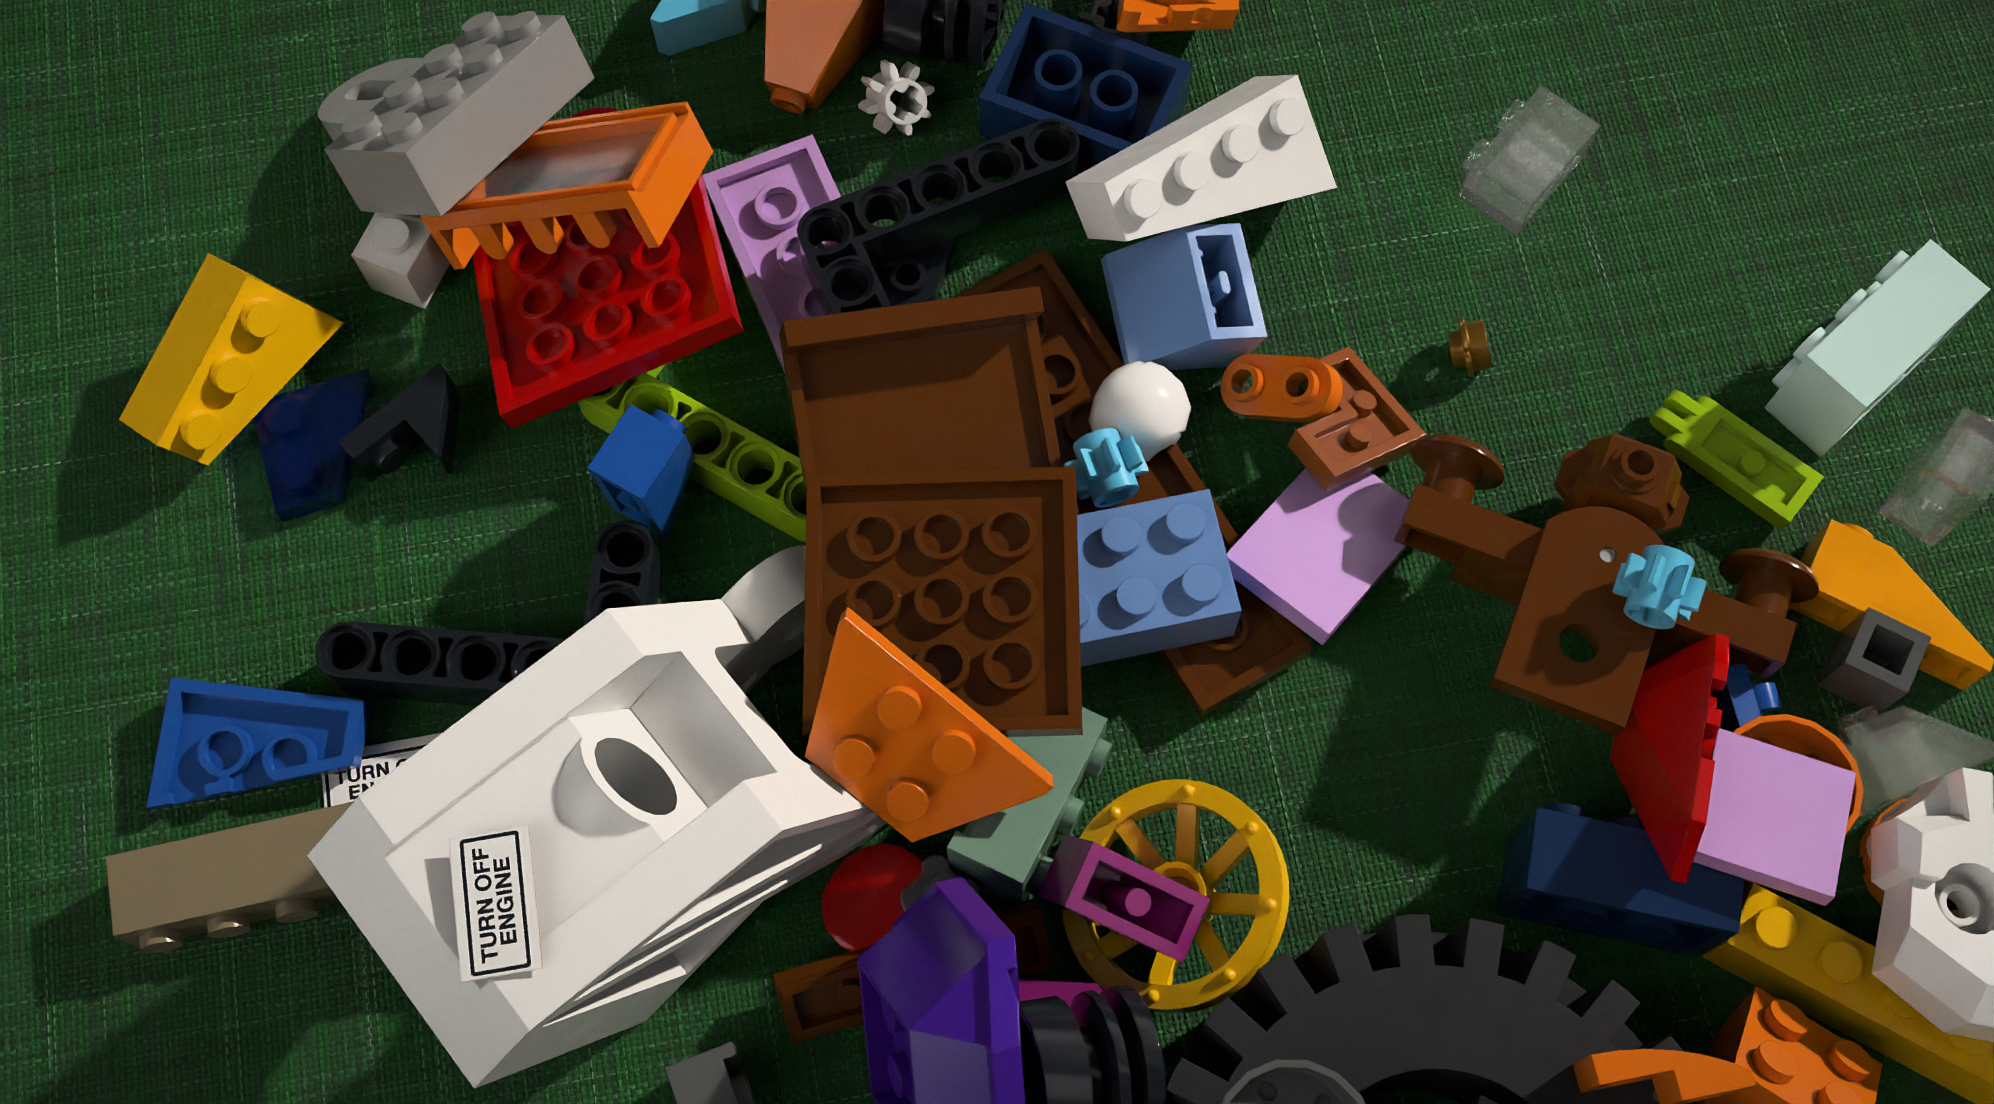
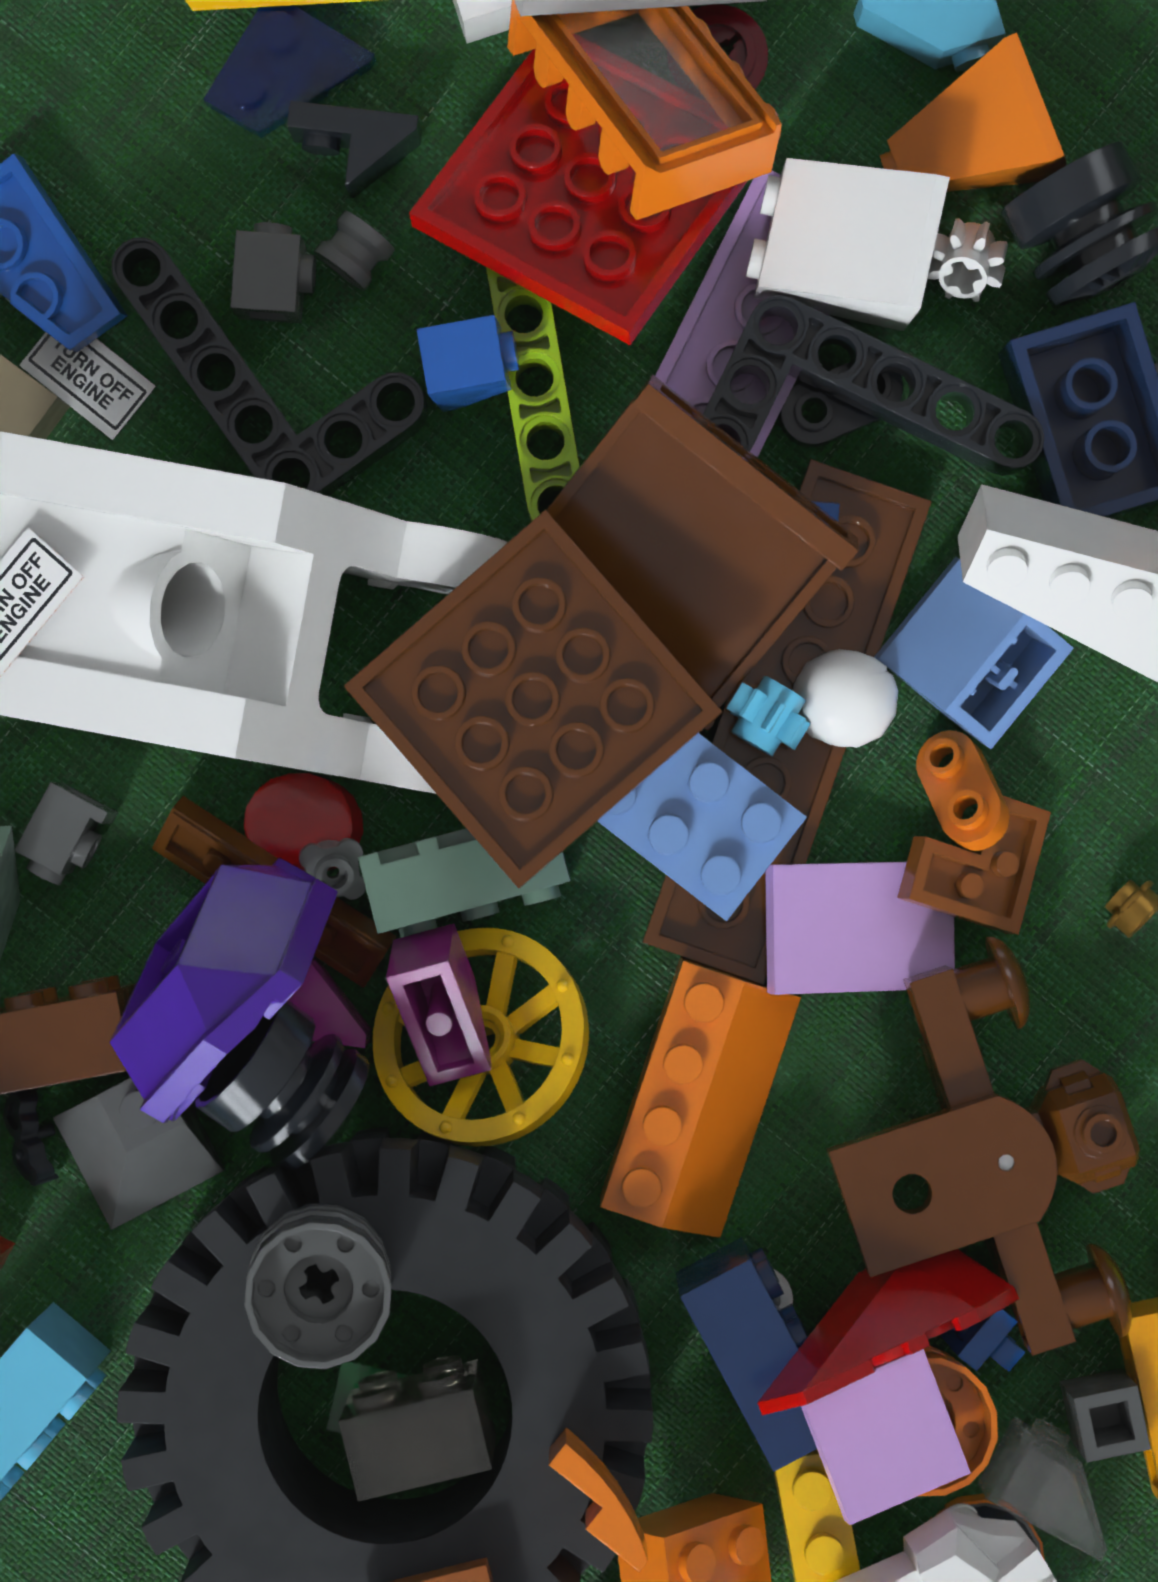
camera: 50 degrees right, 20 degrees up
(447, 568) = (271, 274): none -> dark grey brick
(488, 495) = (354, 250): none -> dark grey wheel
(810, 137) = (849, 239): none -> white slope
(910, 741) = (403, 774): orange wing -> none
(1362, 774) = (698, 1100): none -> orange slope
(1659, 586) = (998, 1226): medium azure gear -> none

